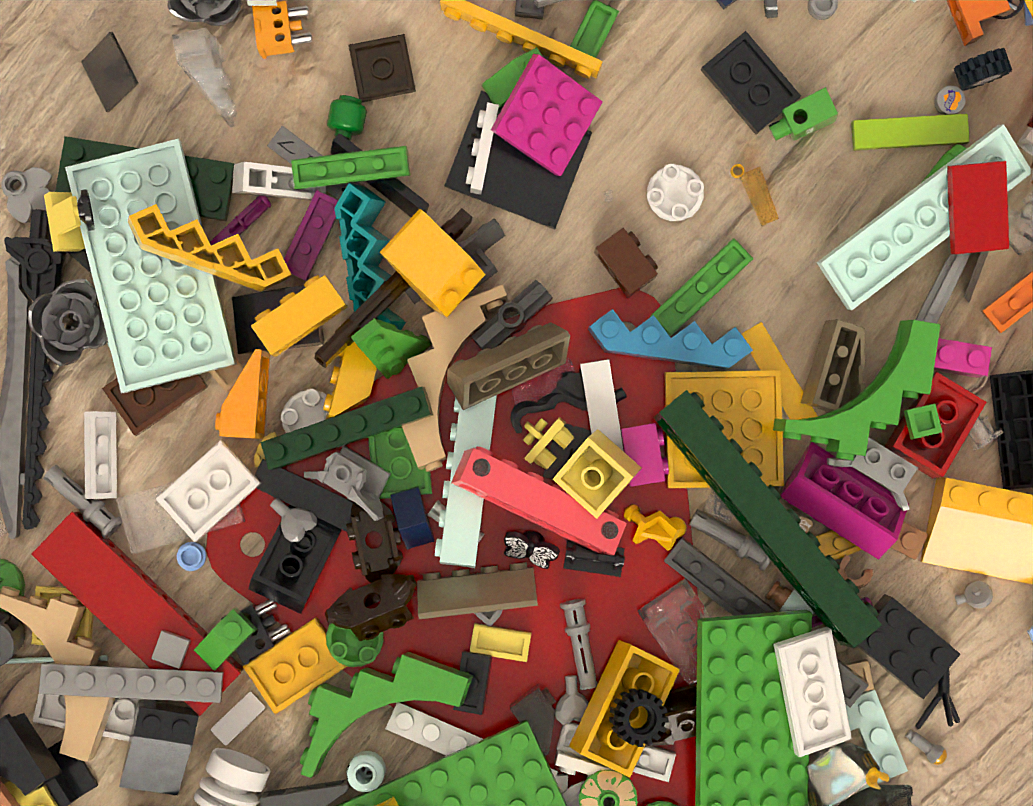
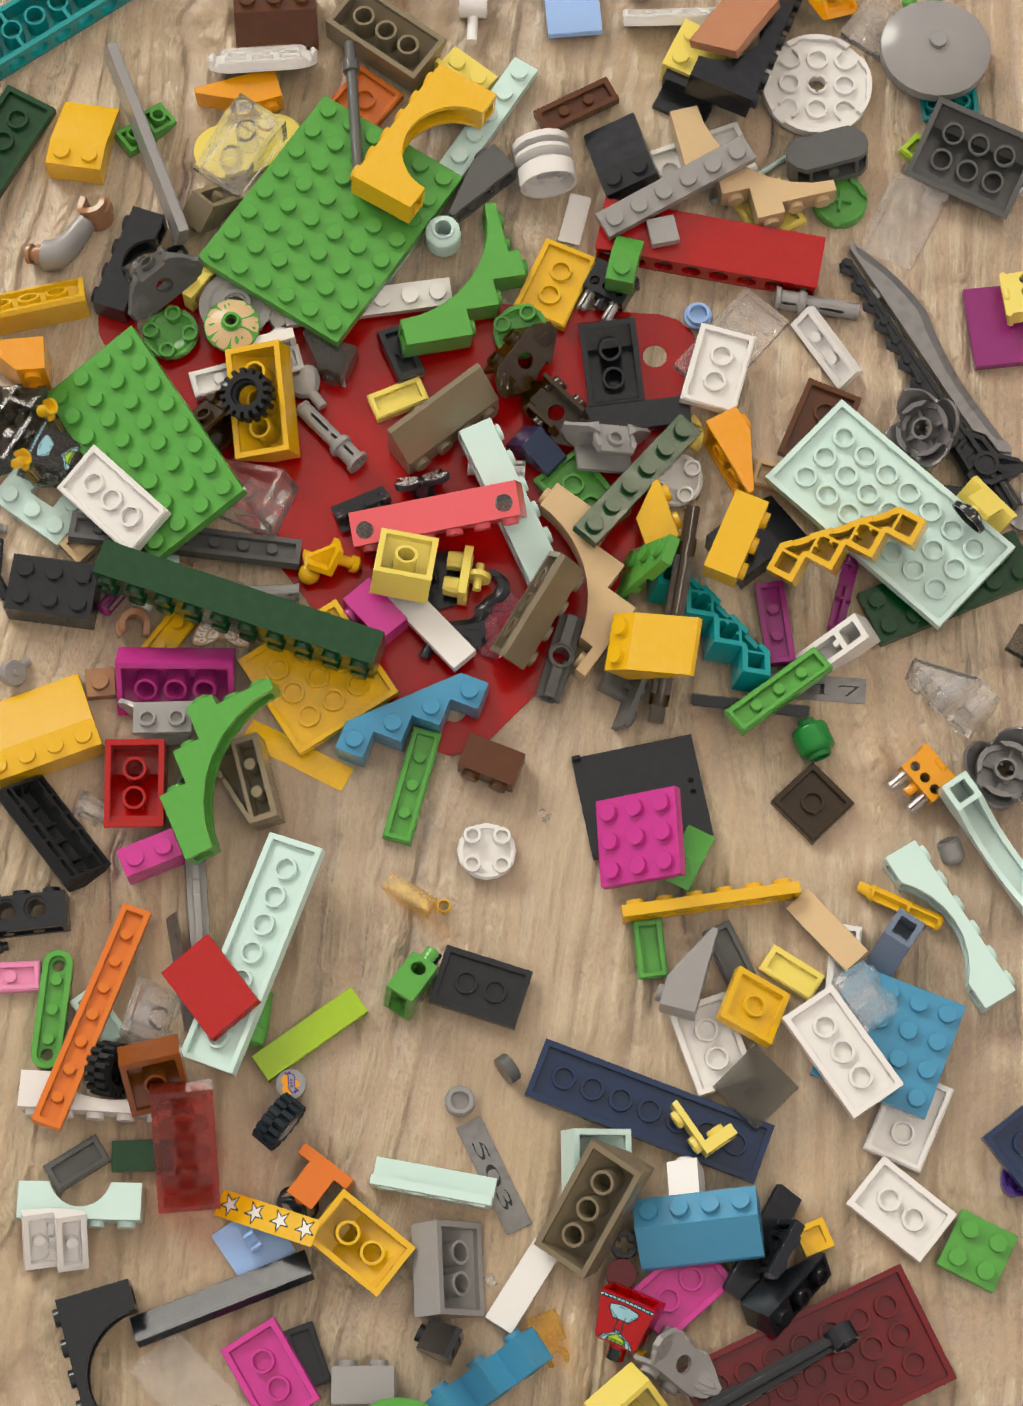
camera: 150 degrees right, 15 degrees down
(294, 521) = (631, 387): light grey rock -> none
(481, 148) = (678, 777): white plate -> none
(923, 421) = (151, 770): bright green plate -> none

